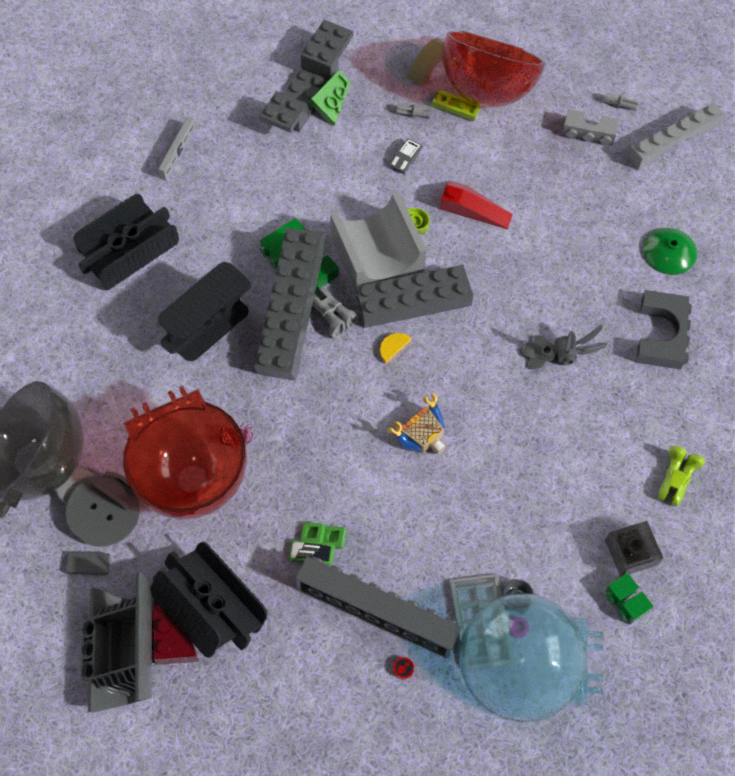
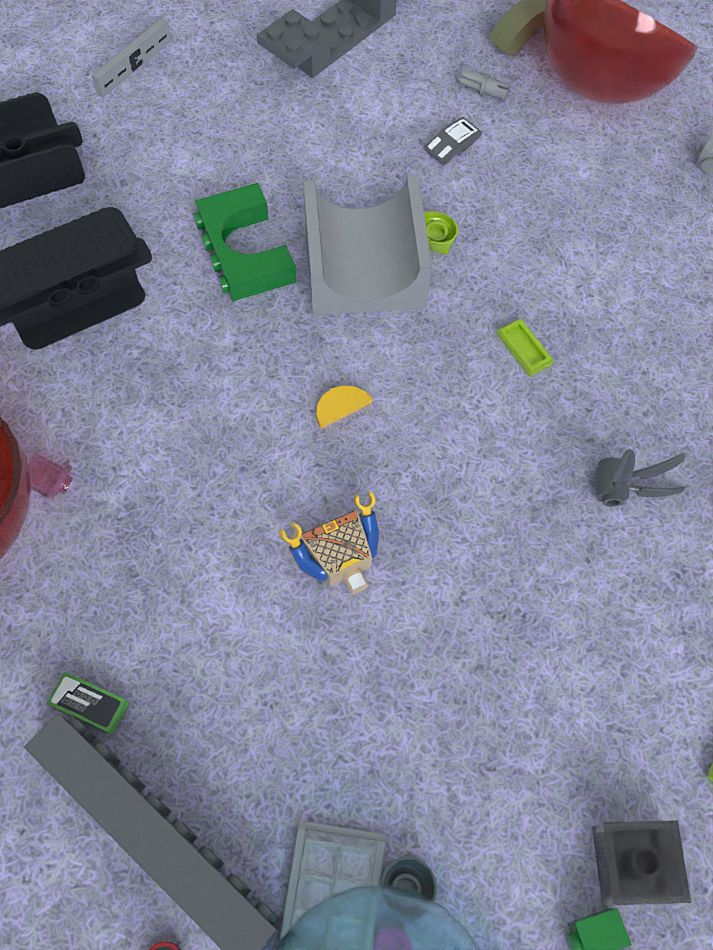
camera: 15 degrees right, 0 degrees up
(290, 304) = (199, 300): dark grey brick -> none
(324, 534) = (120, 678): bright green slope -> none
(329, 308) = (260, 325): light grey piece -> none
(330, 97) = (371, 40): bright green wing -> none
(414, 296) = (396, 337): dark grey brick -> none
(455, 105) = (548, 91): lime plate -> none
(469, 203) = (530, 230): red wedge -> none
(491, 281) = (525, 347): none -> lime tile
(536, 354) = (564, 471): dark grey plate -> none

